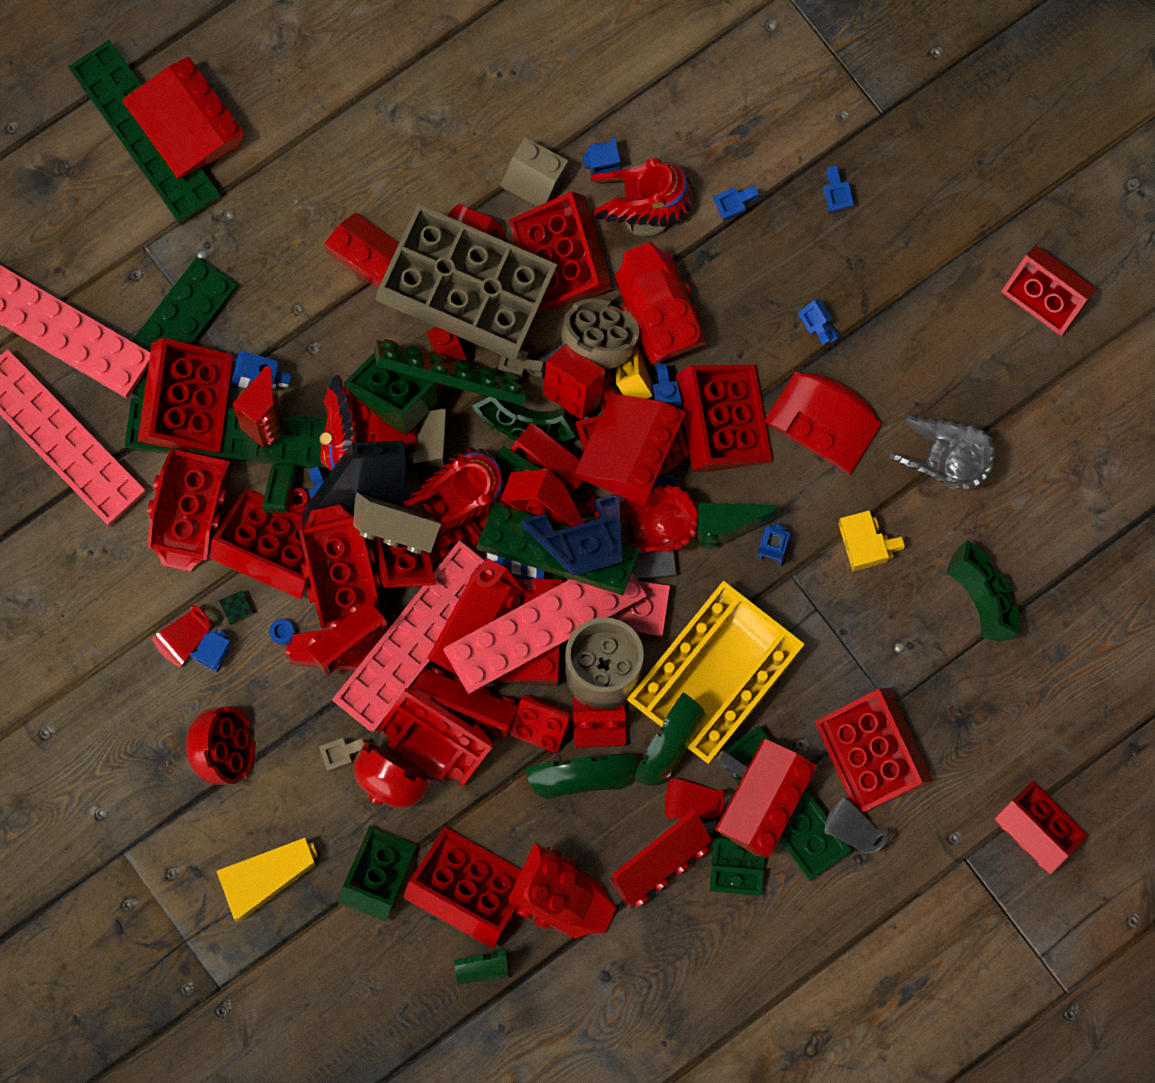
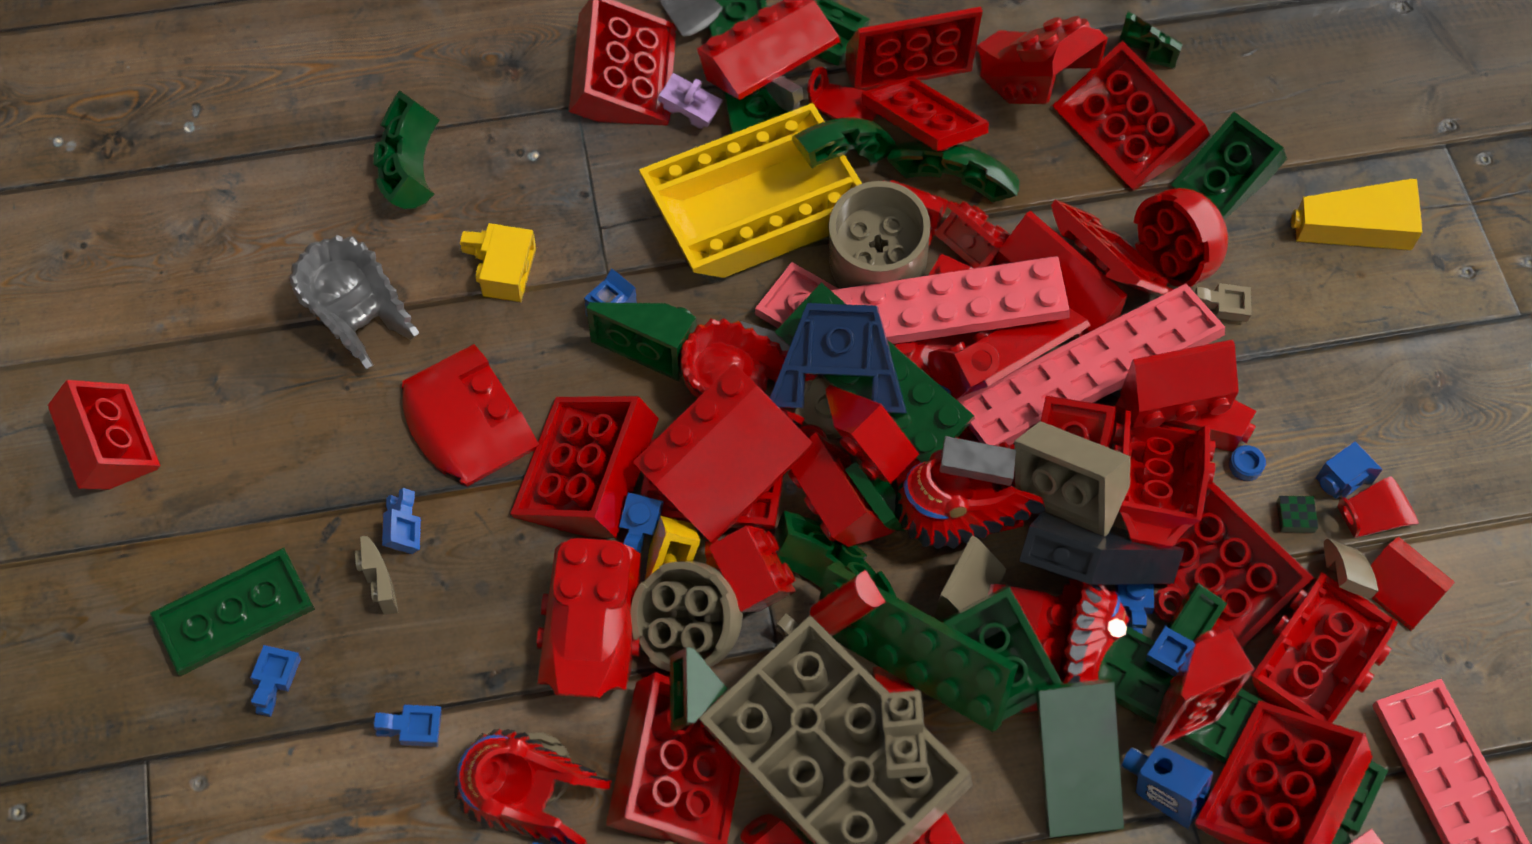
camera: 155 degrees left, 15 degrees down
(147, 591) = (1407, 583): none -> red slope
(188, 573) = (1351, 567): none -> dark tan slope
(210, 739) = (1388, 360): red cylinder -> none
(283, 454) = (1169, 651): none -> blue plate
(318, 355) = (1080, 757): none -> dark green tile
(426, 294) = (904, 734): none -> dark tan slope
(459, 501) = (978, 461): none -> flat silver tile
(501, 373) = (847, 604): none -> red brick
(569, 282) = (692, 688): none -> slope
(623, 799) = (925, 113): none -> red plate
(804, 735) = (689, 100): none -> lavender hips
(817, 286) = (375, 571): none -> dark tan slope
(889, 221) = (231, 611): none -> dark green tile

